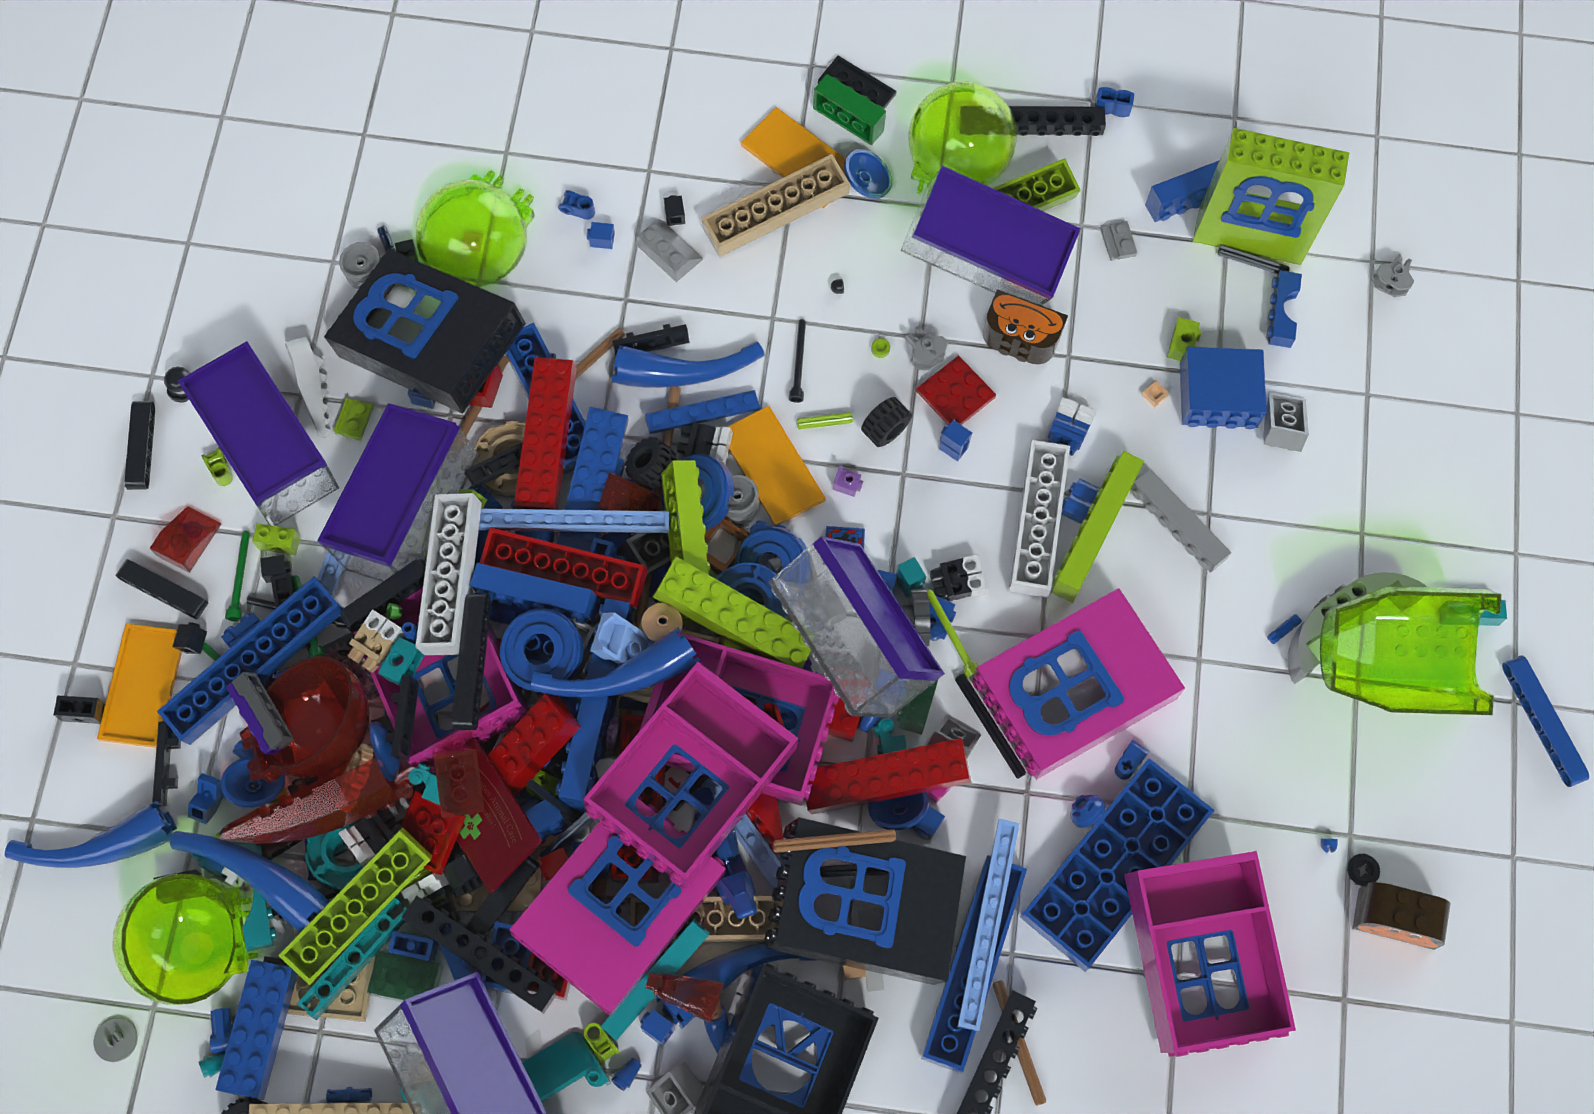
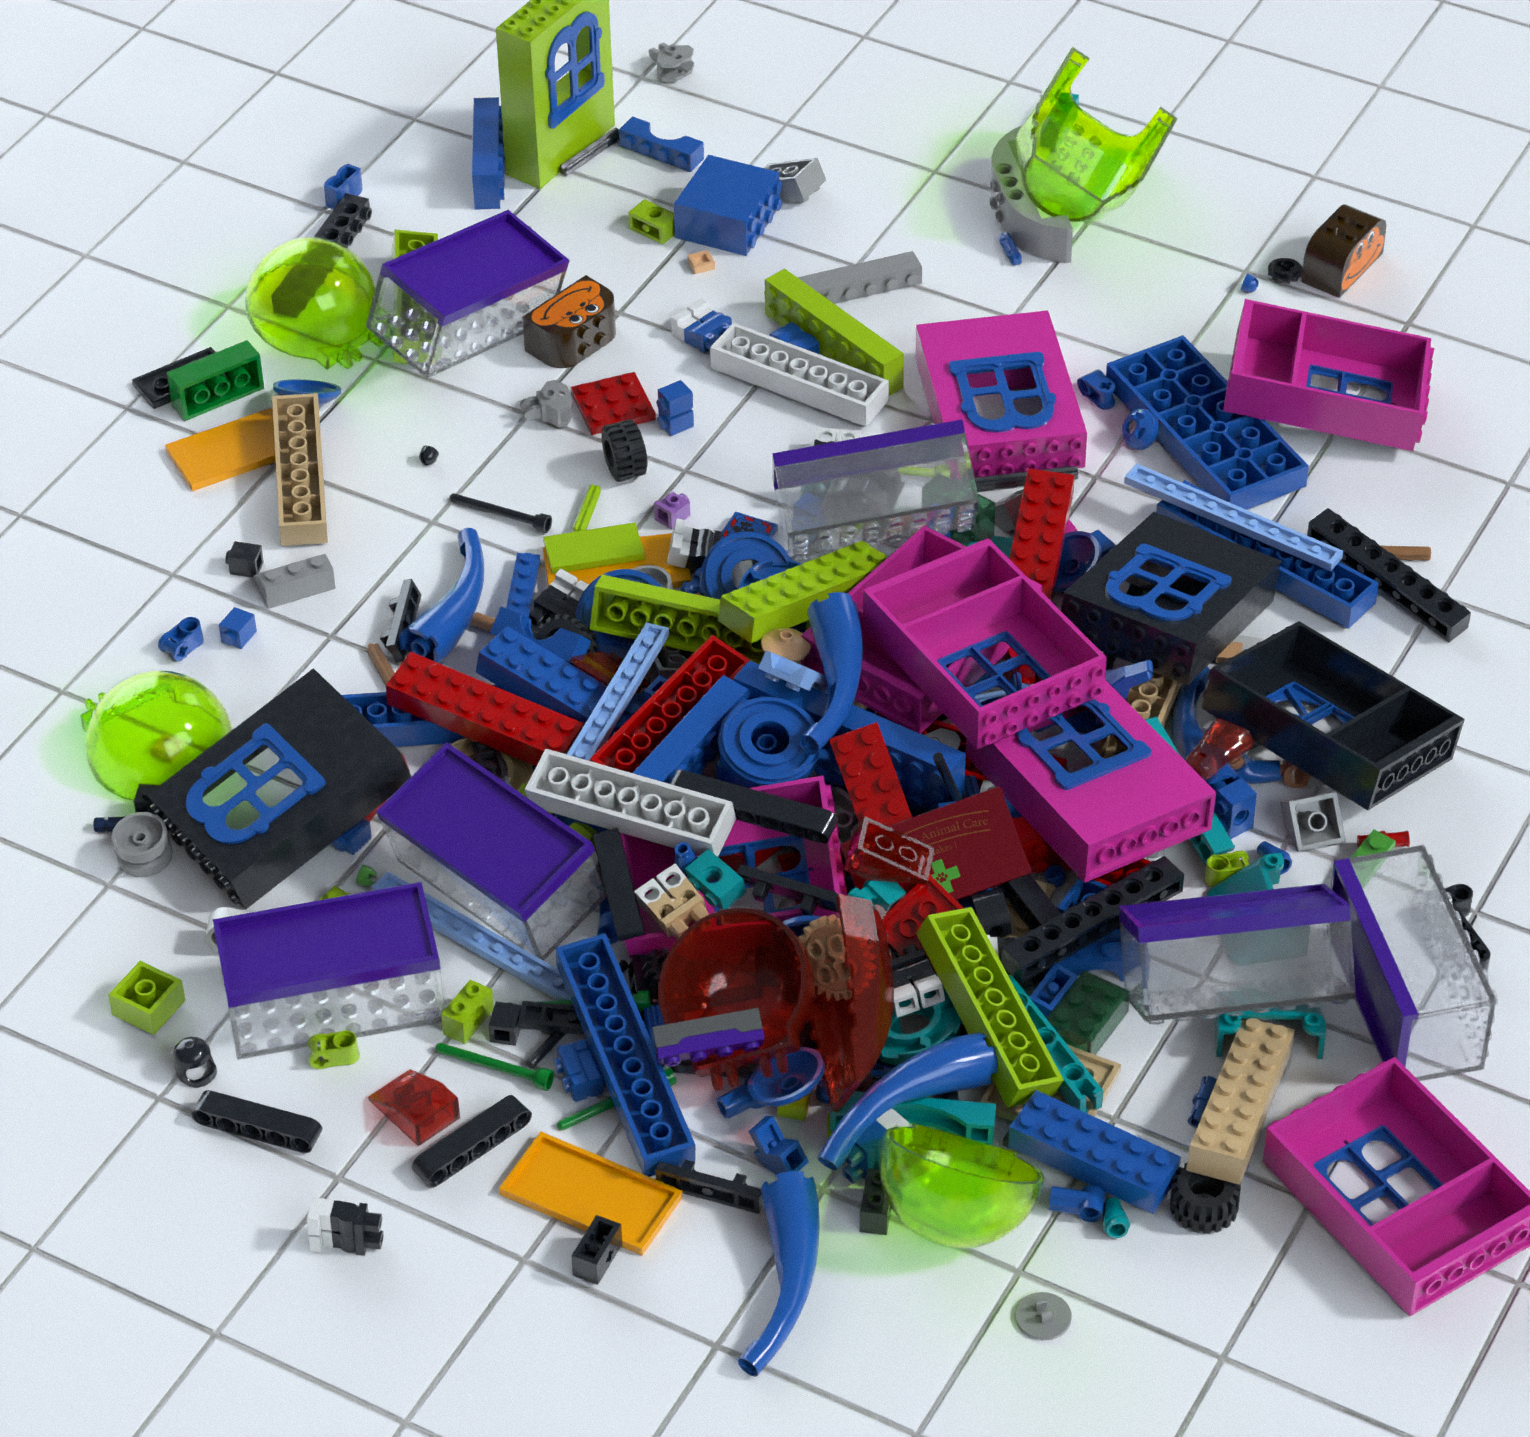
camera: 65 degrees left, 25 degrees down
(53, 537) = (343, 1226): none -> black hips
(189, 638) = (556, 1122): black brick -> none
(222, 329) = (146, 997): none -> lime brick
(393, 612) = (638, 879): bright green hinge -> none
(642, 421) = (562, 644): none -> blue arch
(778, 442) = (594, 547): none -> lime tile
(804, 515) = (690, 545): none -> hips
(834, 840) = (1101, 575): medium nougat axle -> none
(880, 348) = (523, 445): lime tile -> none
(1545, 721) = (1193, 110): blue beam -> none

